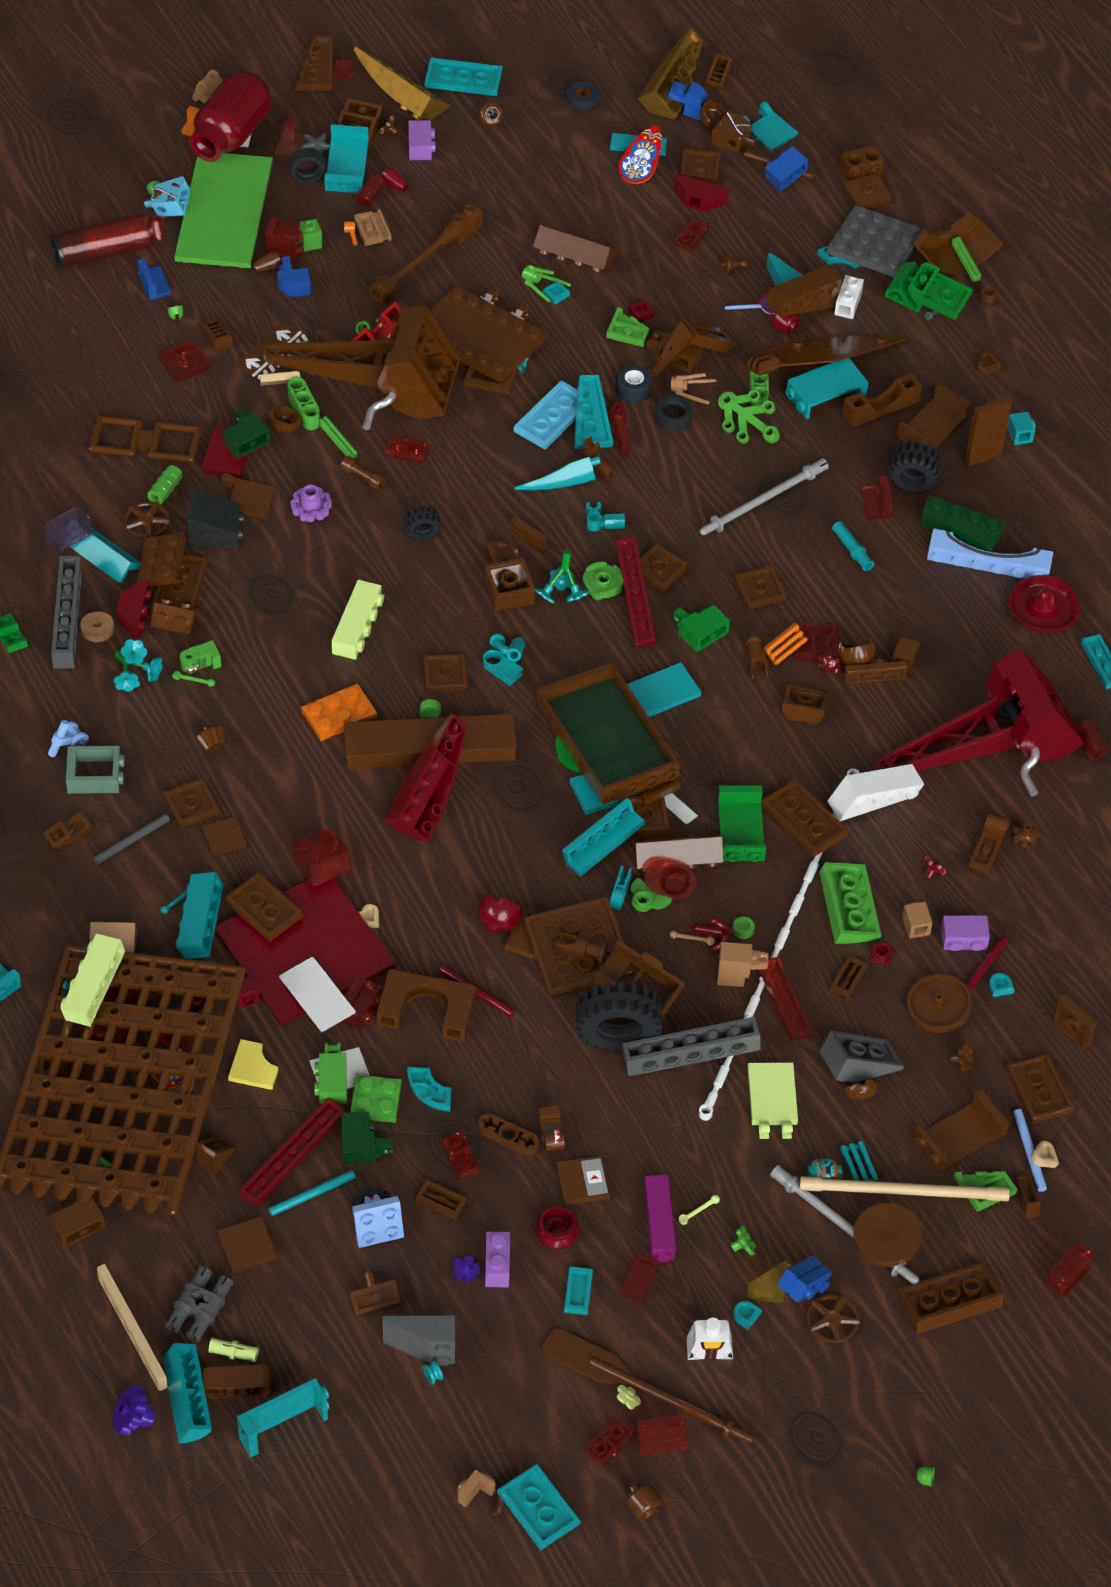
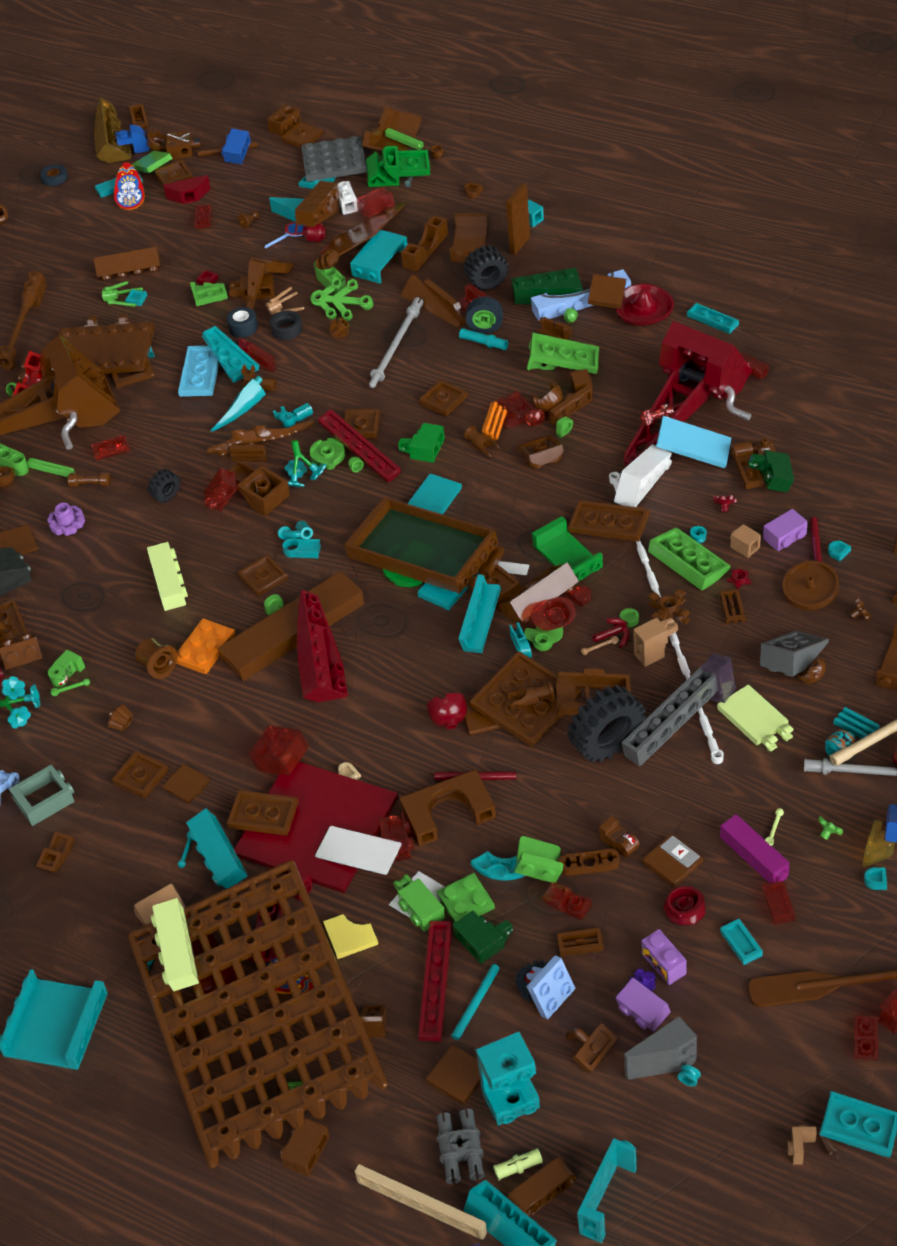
camera: 25 degrees left, 5 degrees down
(131, 838) = (112, 829): dark grey bar -> none
(274, 1270) = (506, 1076): none -> teal plate
(285, 700) = (157, 658): none -> reddish brown piece
(444, 1288) = (642, 1005): none -> medium lavender brick
(464, 1102) = (538, 859): none -> bright green bracket
(468, 560) = (220, 489): none -> clear red hinge
(549, 521) = (256, 436): none -> reddish brown animal
(619, 609) = (355, 464): none -> bright green hinge
(628, 1396) = (848, 995): yellowish green plant -> none
(689, 136) = (152, 161): none -> bright green tile
(709, 1340) = (872, 912): white torso -> none
(718, 876) = (580, 595): none -> clear red tile
(721, 448) = (339, 328): none -> reddish brown gear
(767, 1039) = (723, 669): none -> clear purple panel
(771, 129) = (207, 132): teal flag -> none
(785, 1000) = (704, 644): clear red plate -> none
(788, 939) = (669, 606): none -> reddish brown pin
(840, 472) = (434, 300): none -> reddish brown wedge
(849, 691) = (563, 426): none -> bright green tile
(870, 520) = (484, 315): none -> black wheel
(874, 320) = (375, 202): none -> clear red hinge
(880, 879) = (698, 530): none -> teal bush
(913, 611) = (561, 353): none -> bright green plate
(928, 733) = (647, 417): none -> clear red bar
(931, 578) = (556, 330): none -> reddish brown hinge
(954, 786) = (693, 442): none -> medium azure tile
(960, 571) = (570, 315): none -> bright green hinge
(1010, 863) = (774, 468): none -> dark green hinge
(1014, 567) = (607, 291): none -> reddish brown tile

